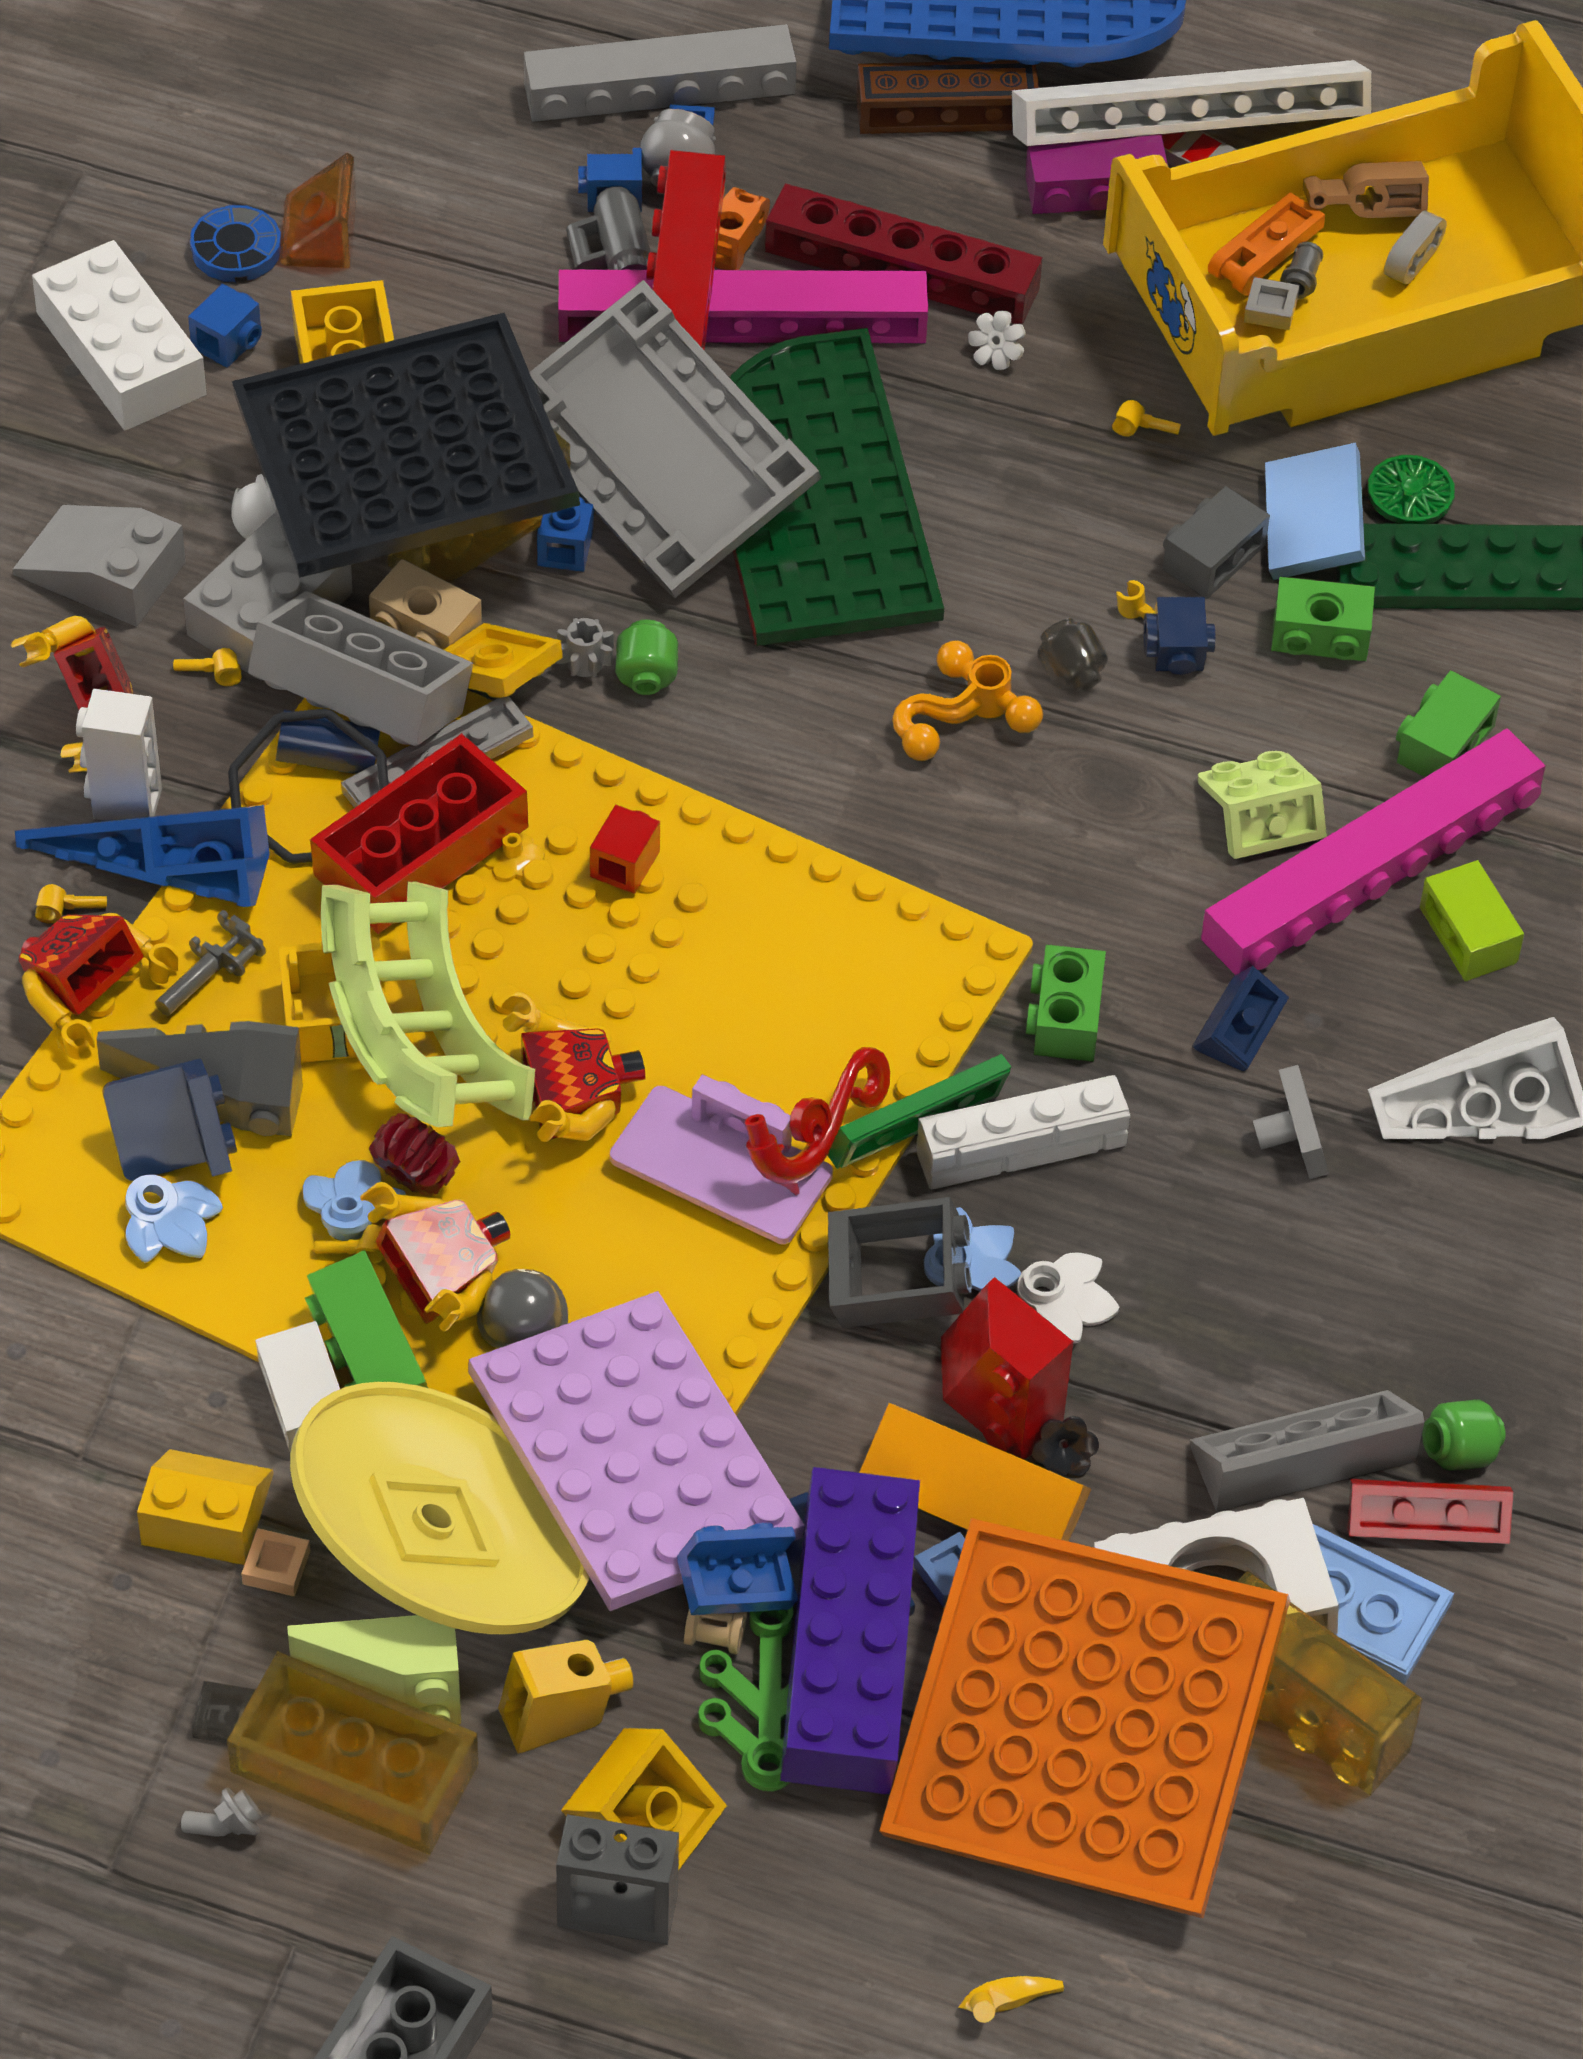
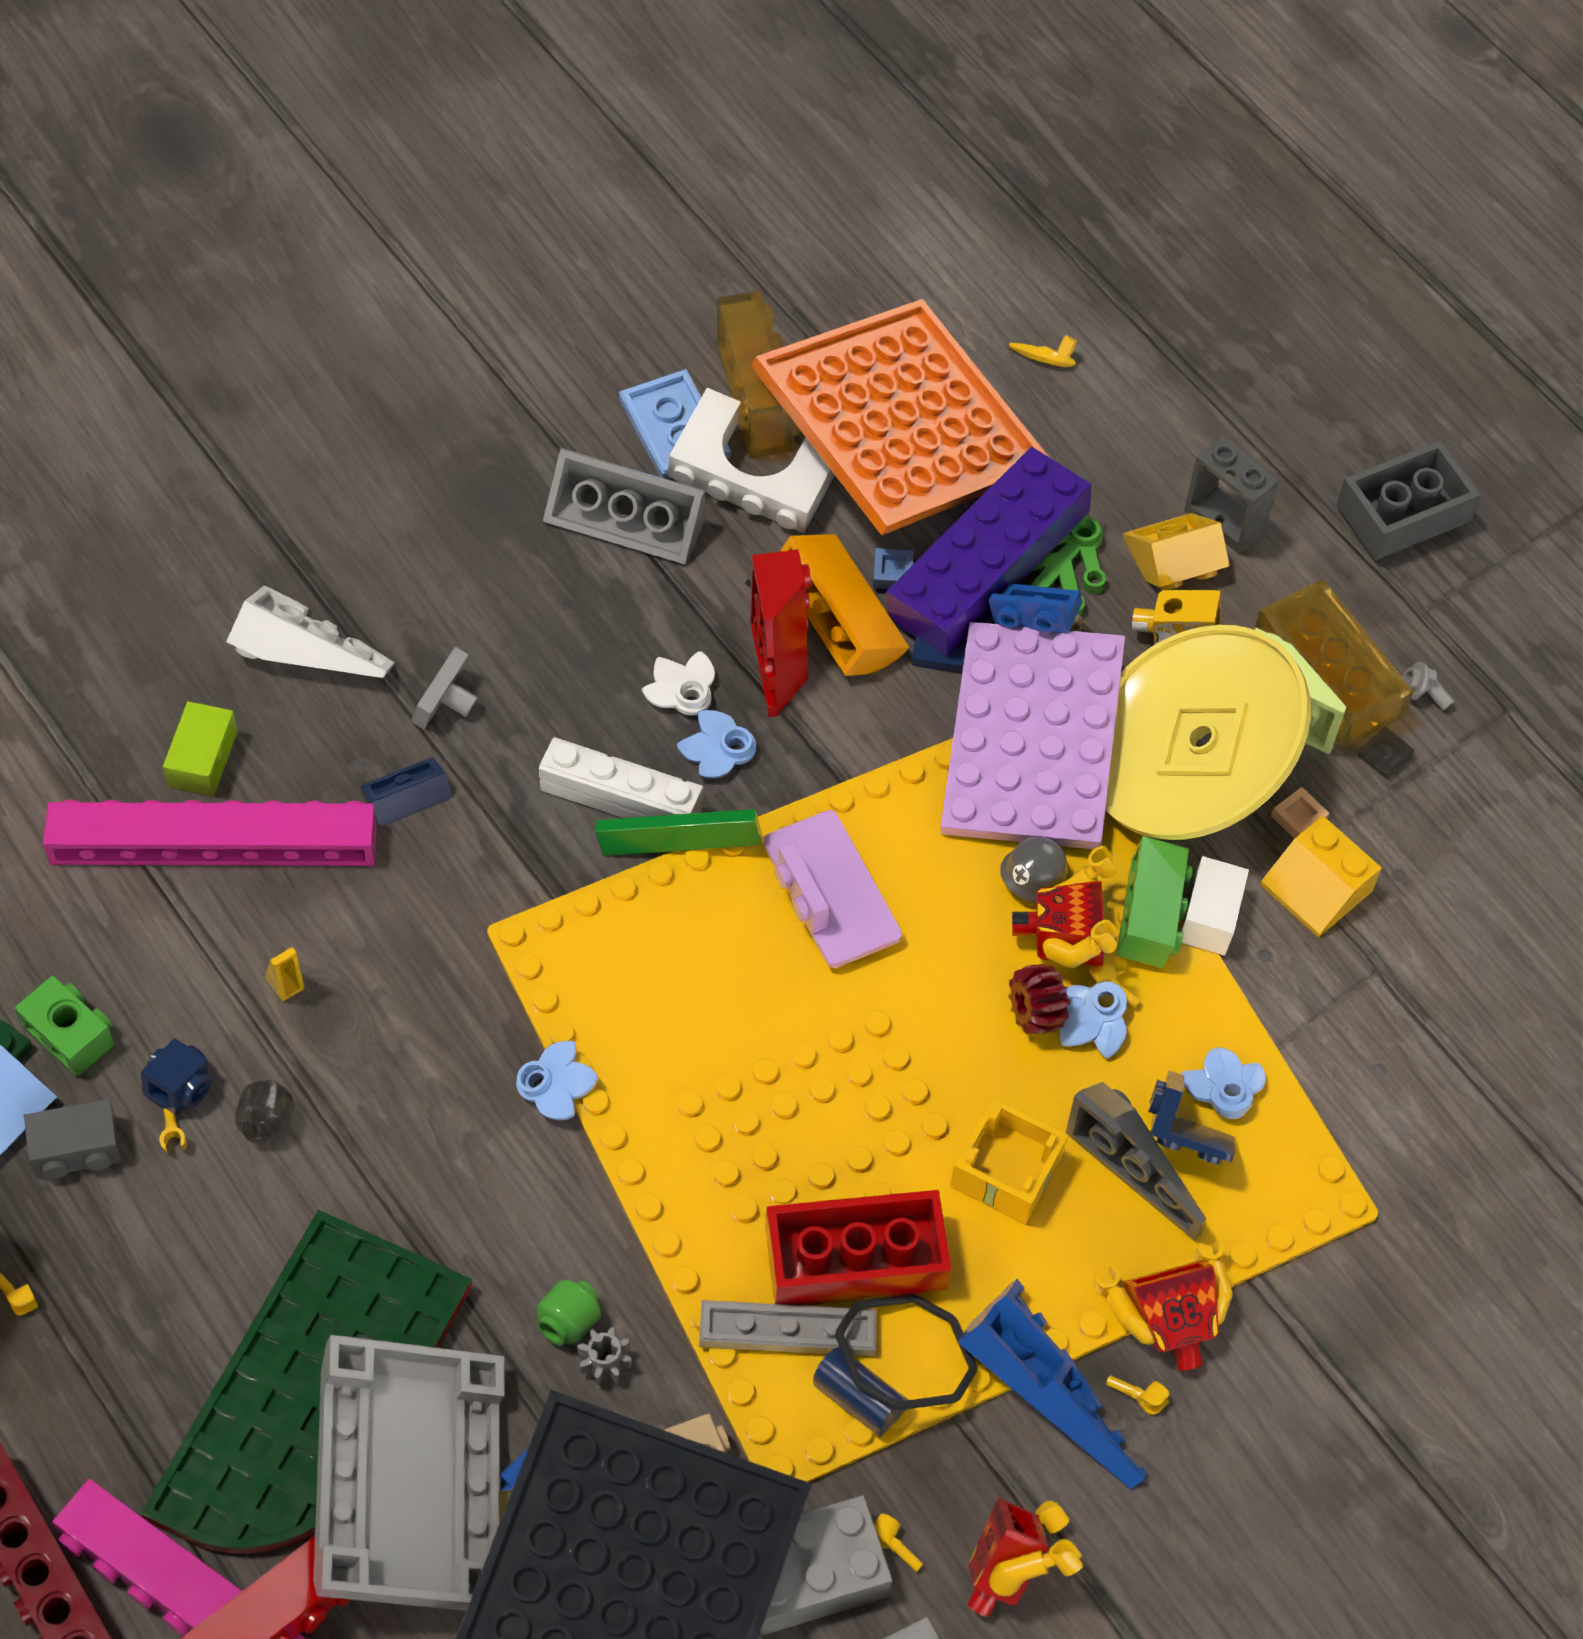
camera: 145 degrees left, 5 degrees up
(119, 755) = (1044, 1441): white brick -> none
(211, 960) = (1068, 1263): dark grey piece -> none
(360, 668) = (804, 1407): light grey brick -> none
(421, 1084) = (1011, 1091): yellowish green fence -> none
(505, 657) = (686, 1376): yellow plate -> none
(574, 1071) = (892, 990): torso -> none
(625, 848) = (716, 1147): red brick -> none
(817, 1122) = (799, 834): red plant -> none
(834, 833) = (561, 1081): none -> light blue plate
(889, 1222) = (794, 719): dark grey window -> none
(956, 661) = (348, 1162): light orange piece -> none
(997, 340) = (50, 1434): white plant -> none
(1066, 1002) = (503, 853): bright green brick -> none
(1174, 770) = (285, 974): none -> yellow piece
(1266, 803) = (240, 924): yellowish green bracket -> none
(1430, 1511) = (590, 434): plate -> none
(1448, 724) = (70, 888): bright green brick -> none
(1463, 1435) = (530, 458): bright green head -> none

